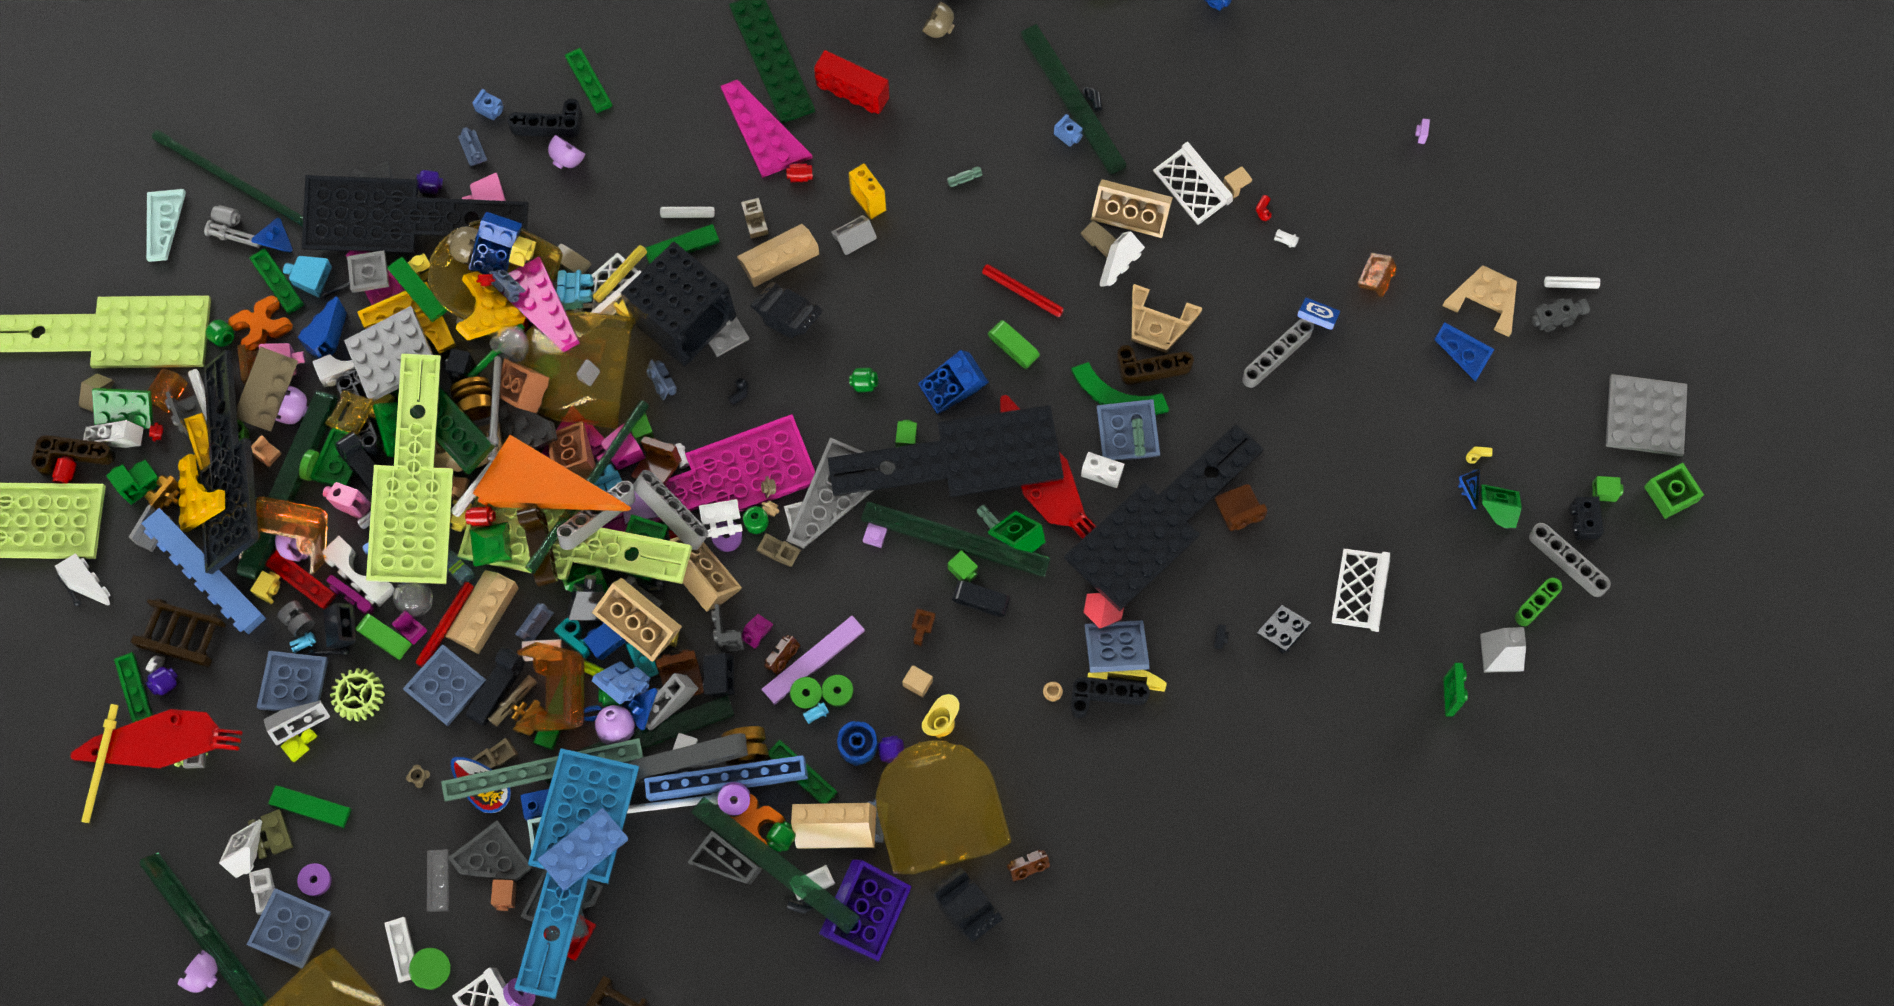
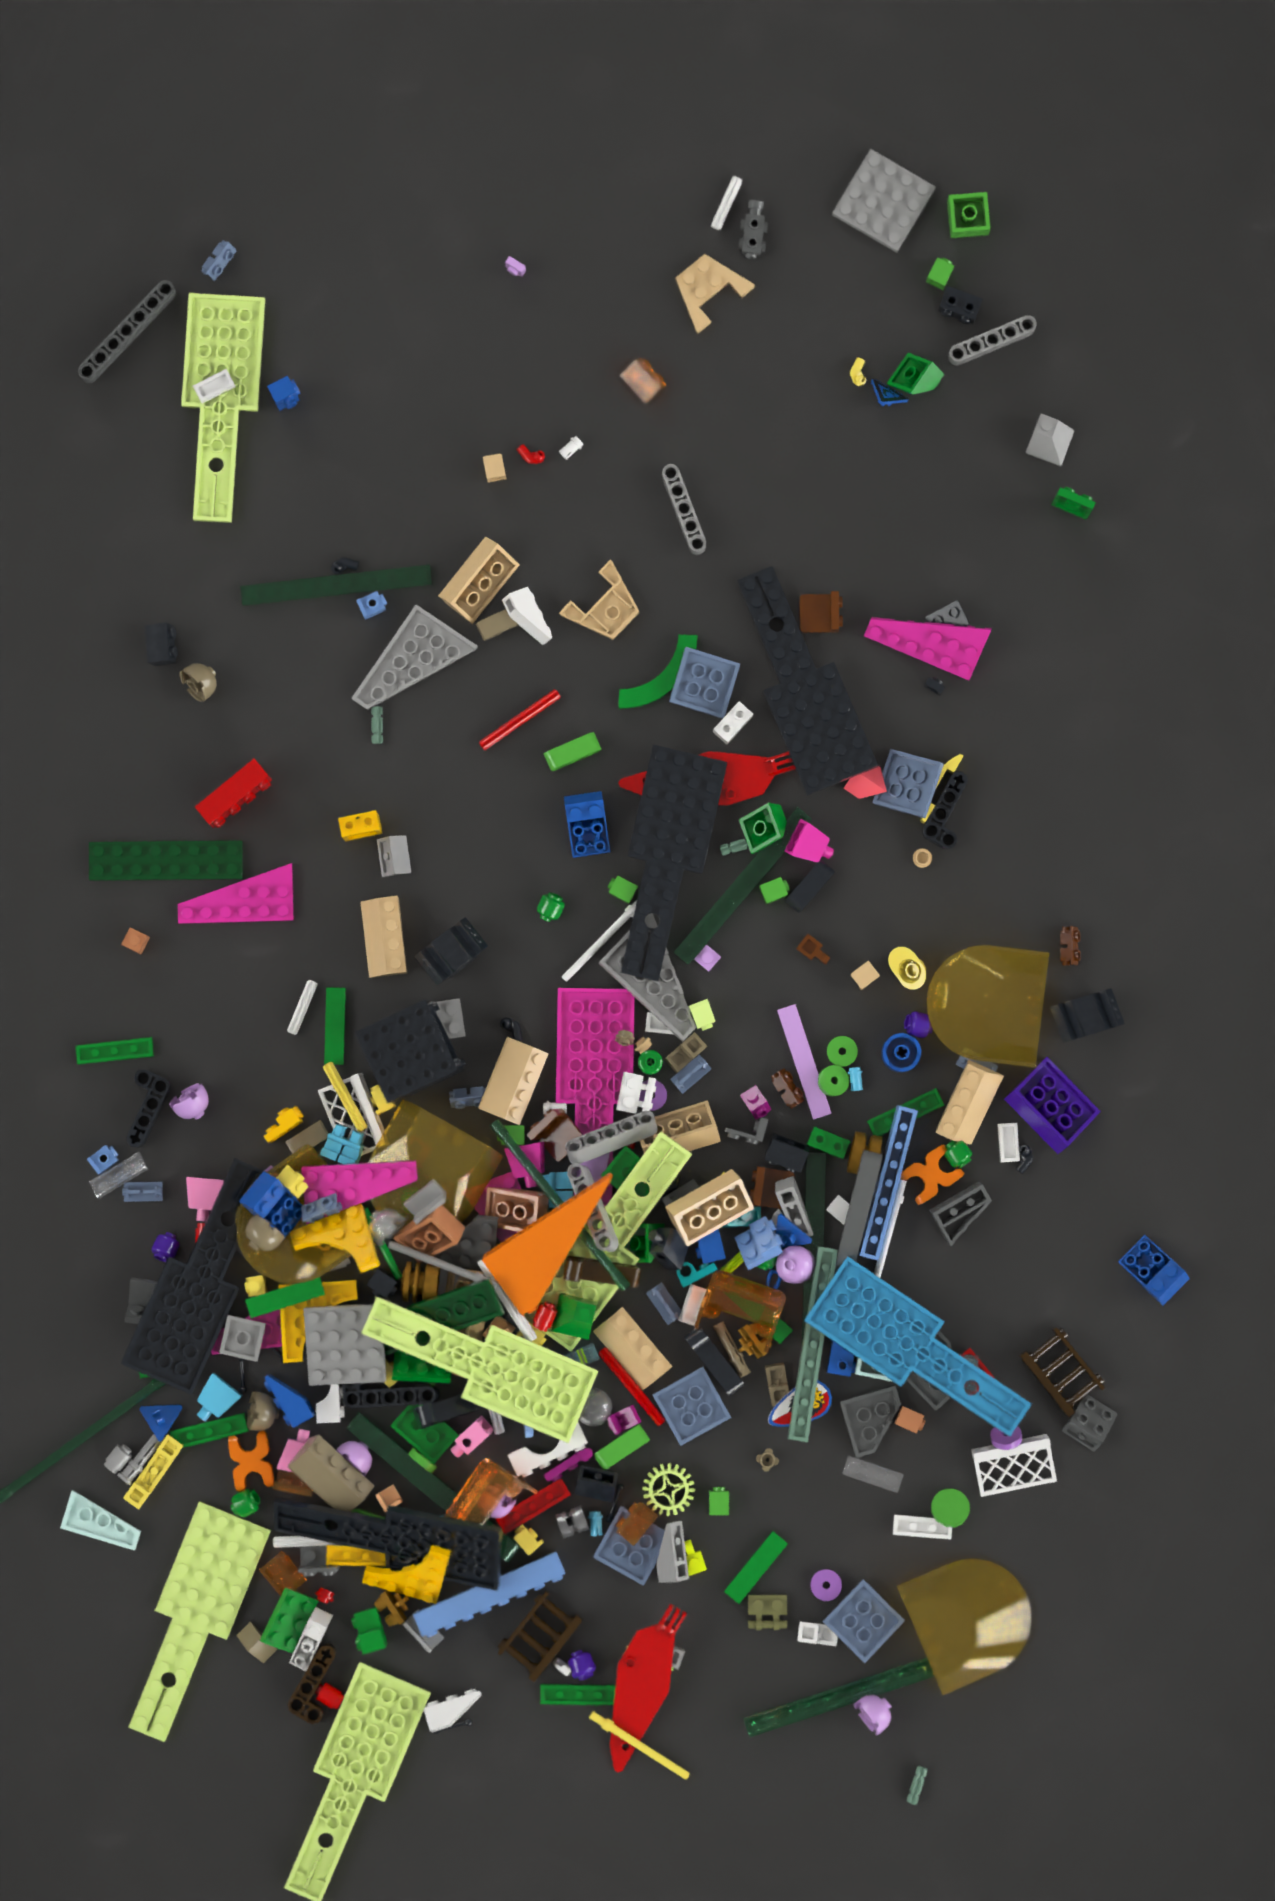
camera: 70 degrees left, 15 degrees up
(223, 250) = (153, 1471): none -> light yellow slope
(242, 850) = (774, 1640): white slope -> none
(305, 312) = (262, 1411): none -> dark tan cylinder
(314, 675) = (636, 1522): none -> clear orange bracket
(354, 416) = (395, 1398): clear yellow plate -> none
(361, 745) = (718, 1501): none -> bright green brick
(478, 122) = (118, 1175): none -> clear plate
(485, 280) = (311, 1227): red plate -> none
(547, 366) = (425, 1200): none -> light grey panel
(574, 232) = (287, 1121): none -> yellow plate
(583, 849) = (907, 1332): medium blue plate -> none
(588, 373) = (450, 1163): light grey slope -> none
(689, 406) = (513, 1080): none -> tan slope
(690, 57) = (135, 940): none -> nougat brick
(734, 807) = (917, 1186): medium lavender piece -> none
(743, 707) = (828, 1143): none -> green brick
(754, 218) = (336, 944): dark tan slope -> none
(759, 562) = (691, 1074): none -> sand blue hinge
(775, 865) = (985, 1169): clear green plate -> none
(799, 172) = (307, 882): red brick -> none
(819, 547) = (702, 1015): none -> yellowish green slope
(844, 434) = (629, 912): none -> white bar
(1020, 580) = (808, 843): none -> dark pink torso
(1043, 182) = (414, 653): none -> light grey wing
(1138, 435) = (717, 676): sand green axle -> none
(1154, 363) = (649, 627): dark brown beam -> none
(1207, 175) = (474, 494): white fence -> none
(1260, 621) = (939, 644): none -> dark pink wing
(1318, 313) = (662, 454): blue tile -> none
(1377, 594) = (949, 524): white fence -> none
(1464, 349) = (752, 335): blue wing -> none
(1542, 594) = (1019, 396): bright green beam -> none

